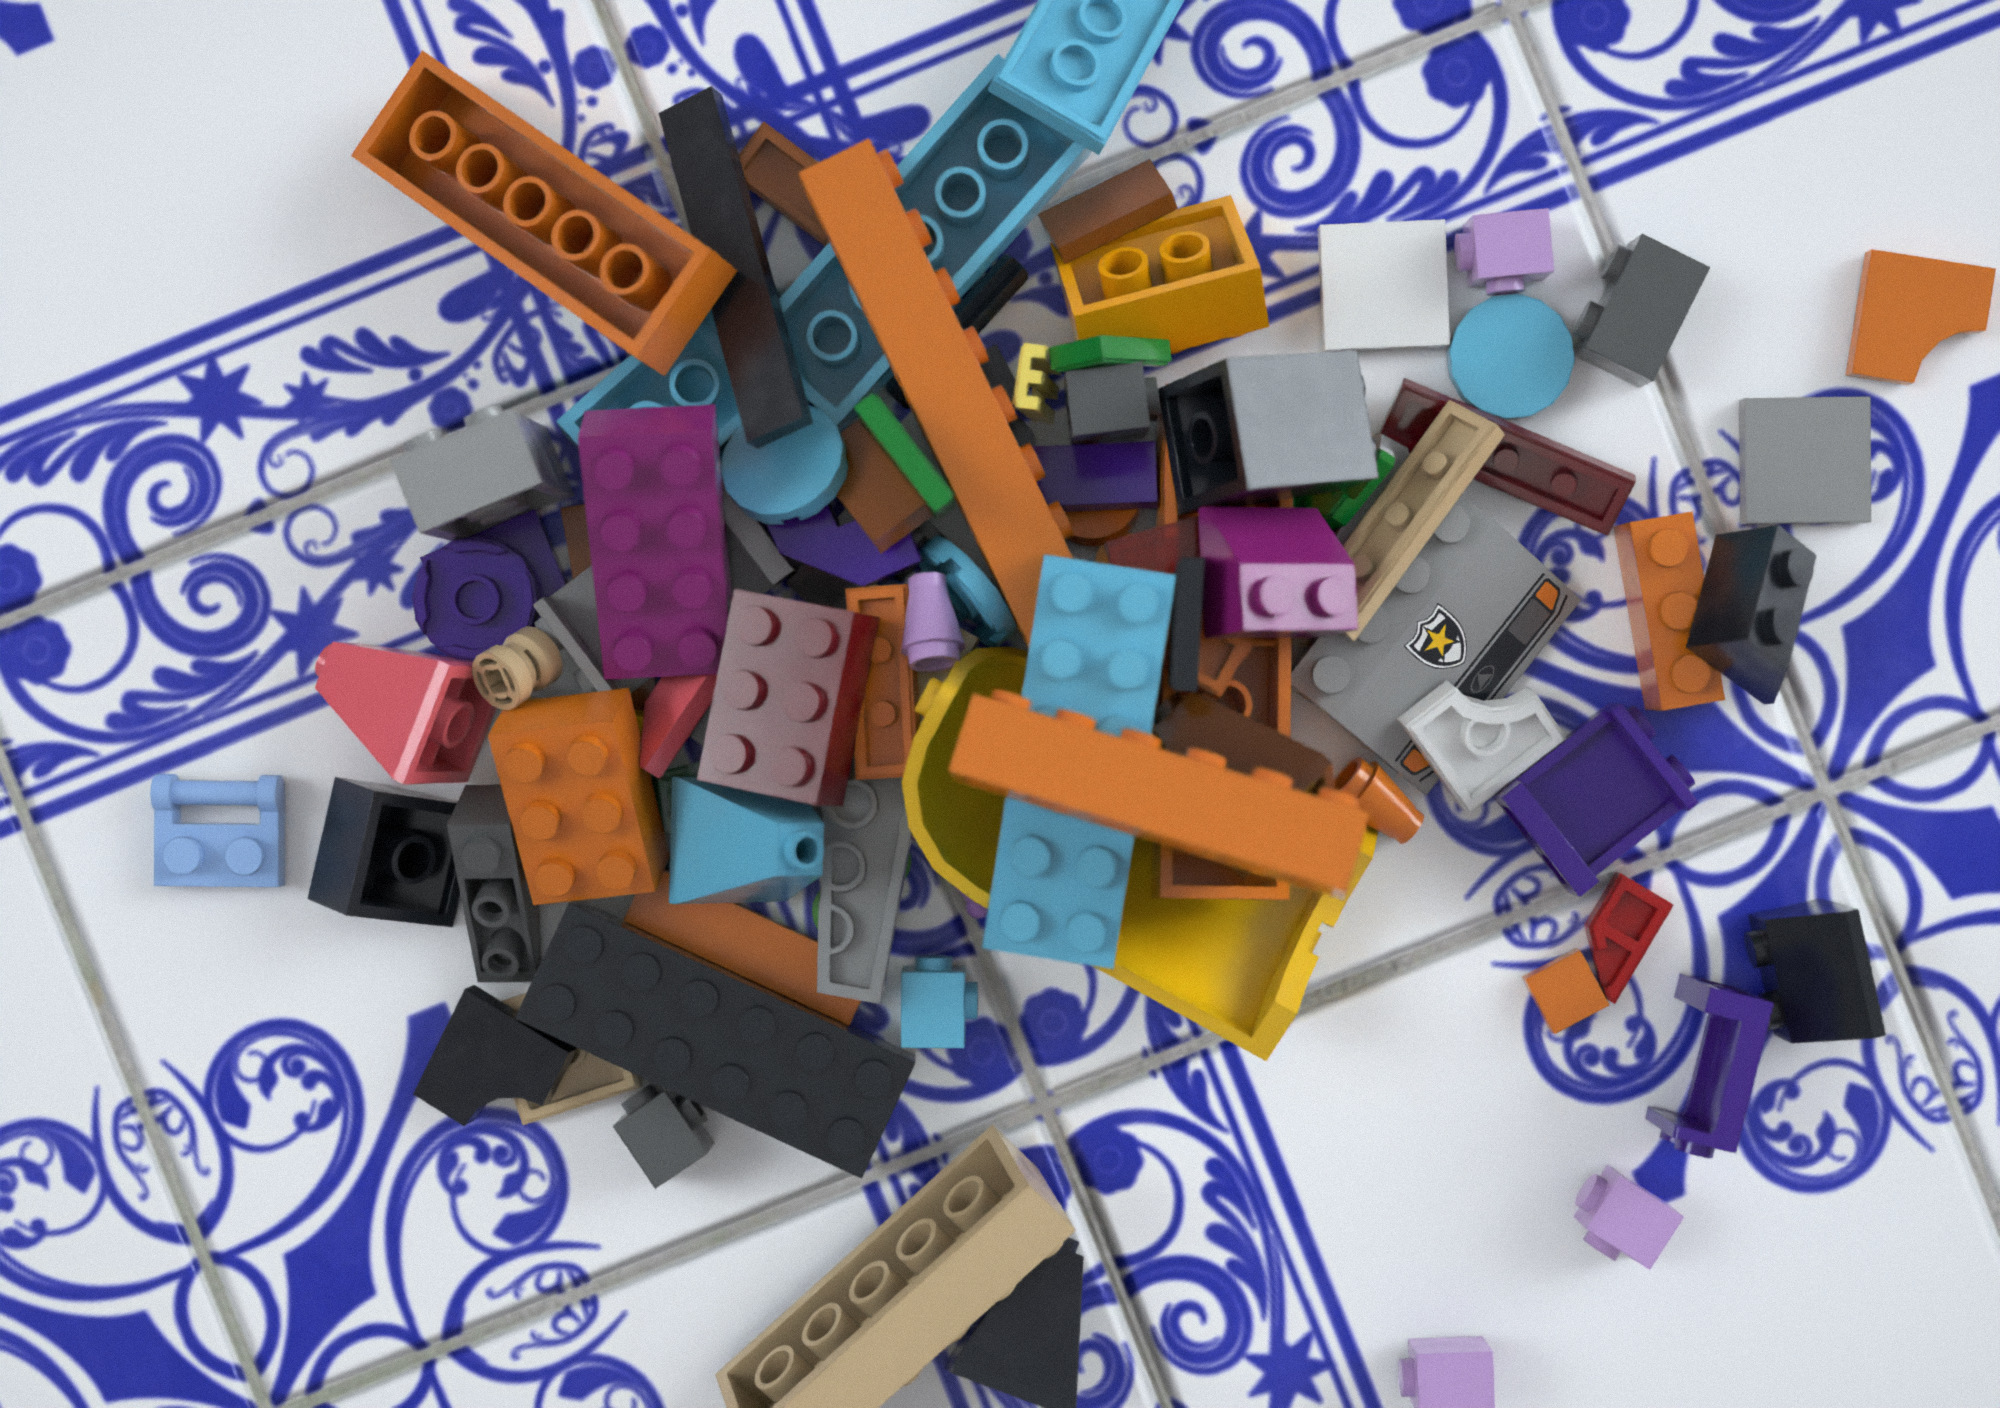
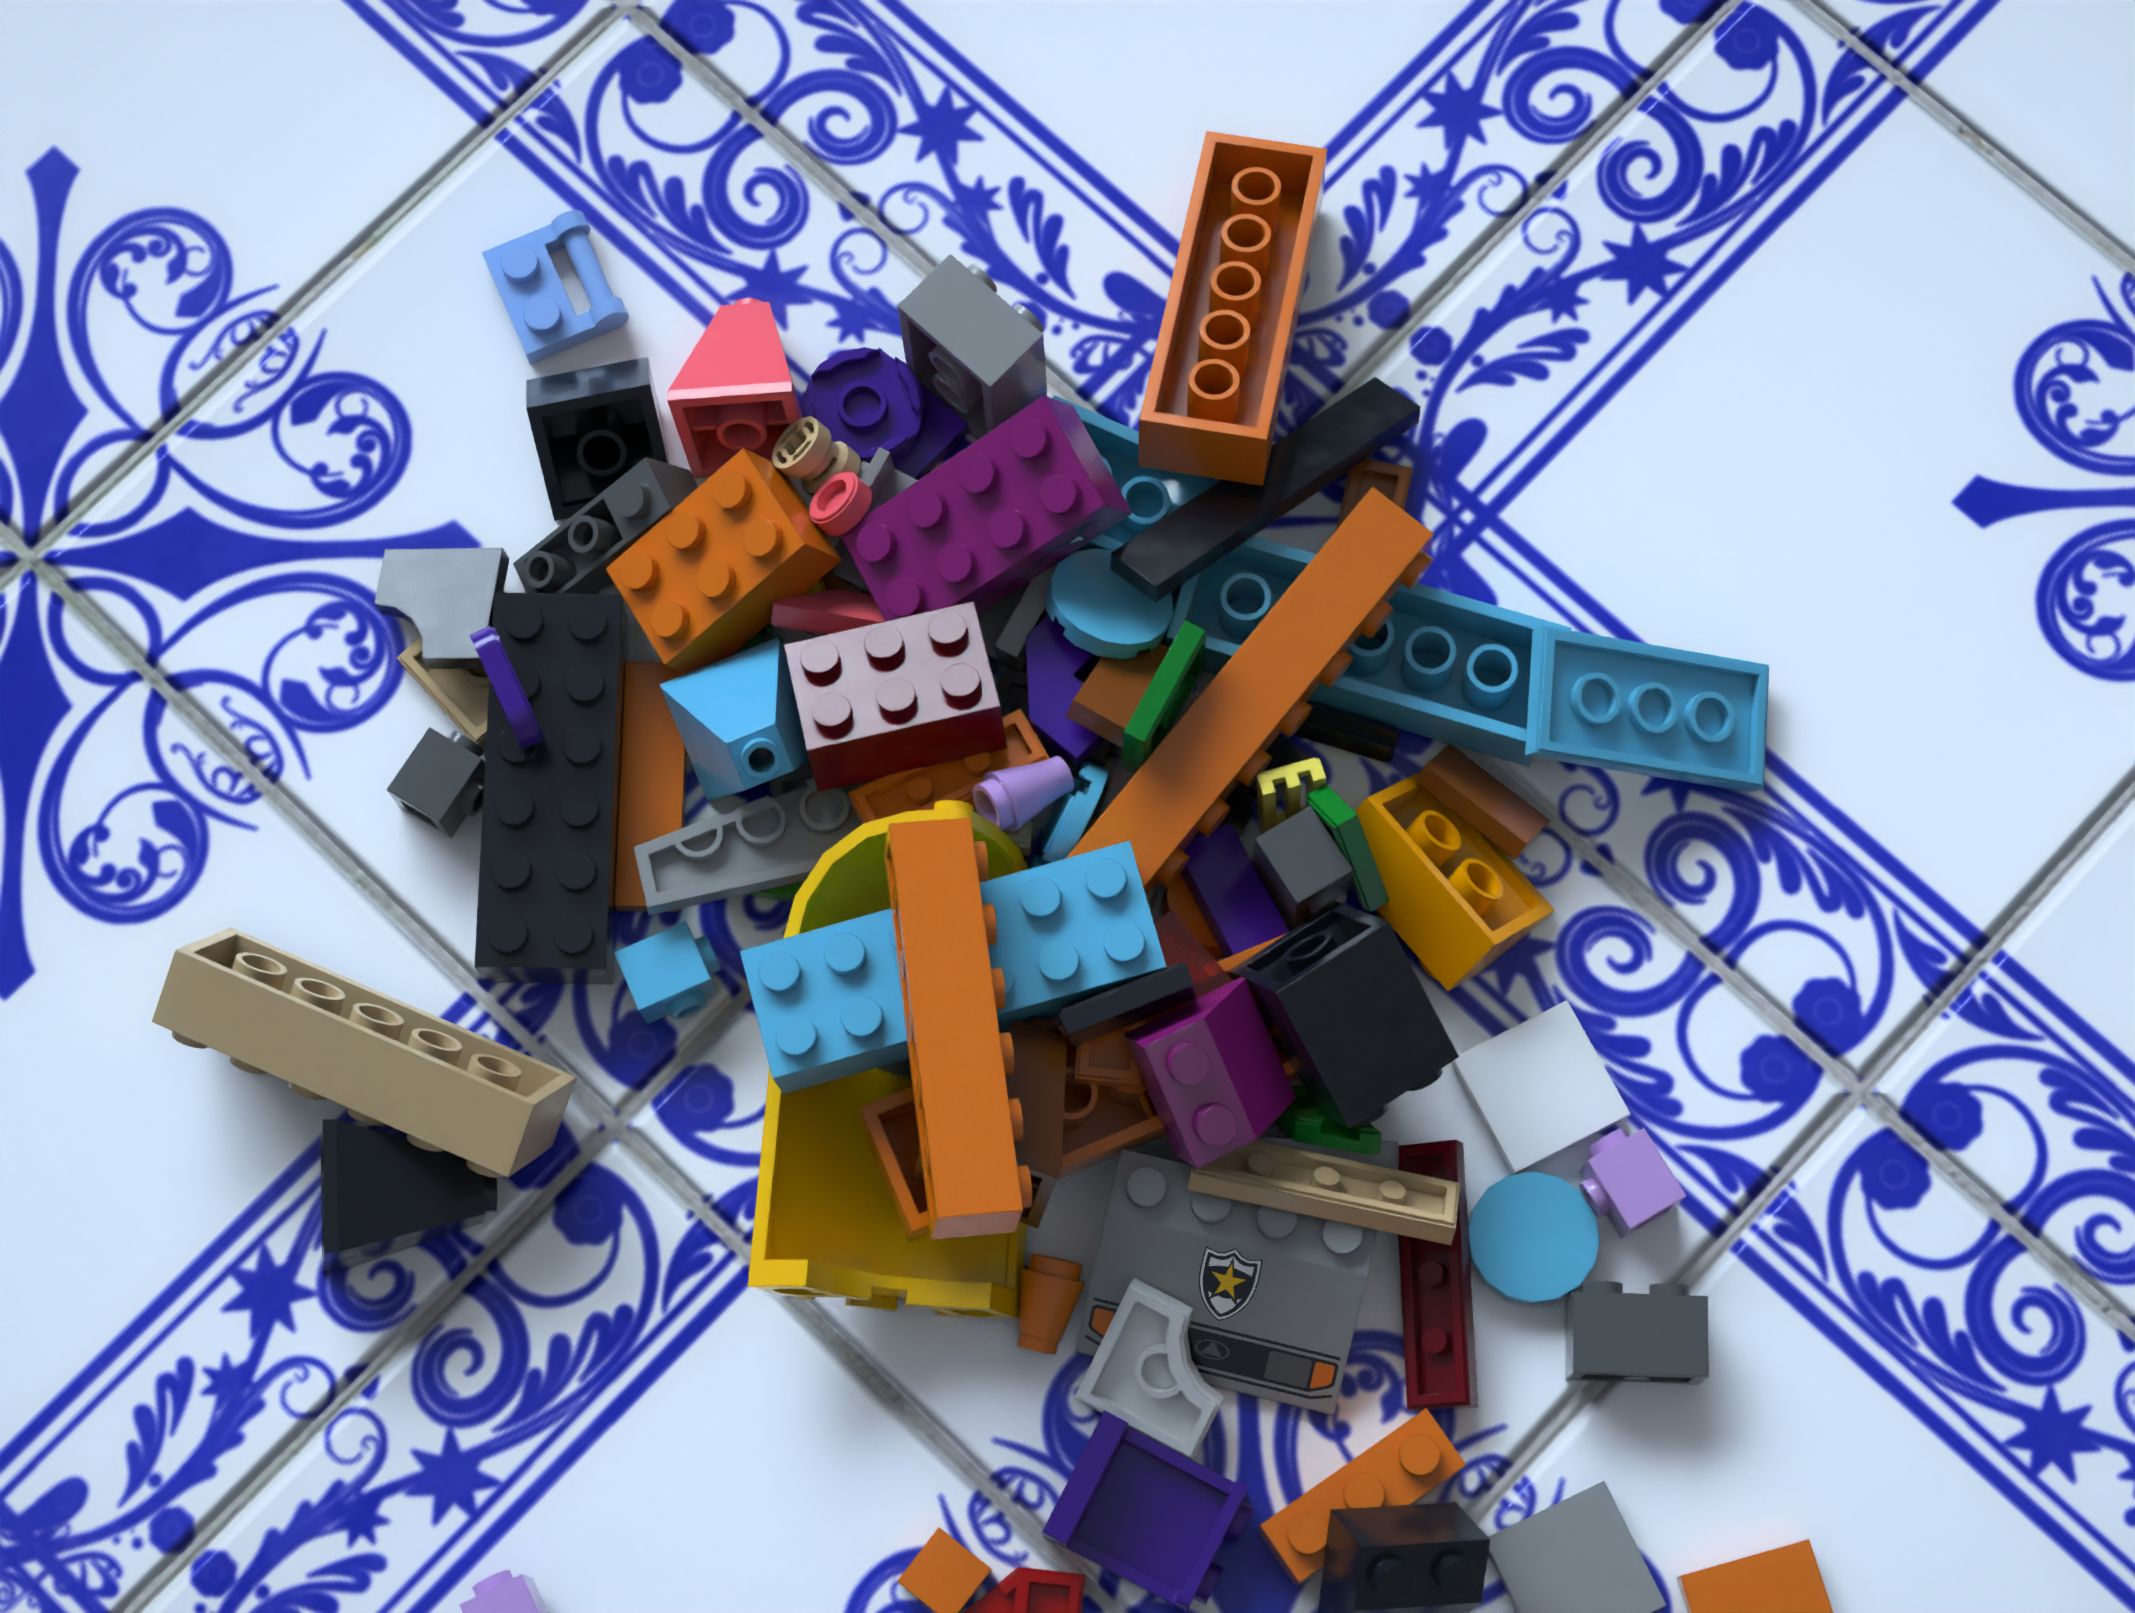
camera: 70 degrees right, 15 degrees down
(575, 666) = (840, 503): none -> coral tile
(621, 1048) = (507, 687): none -> dark purple tile

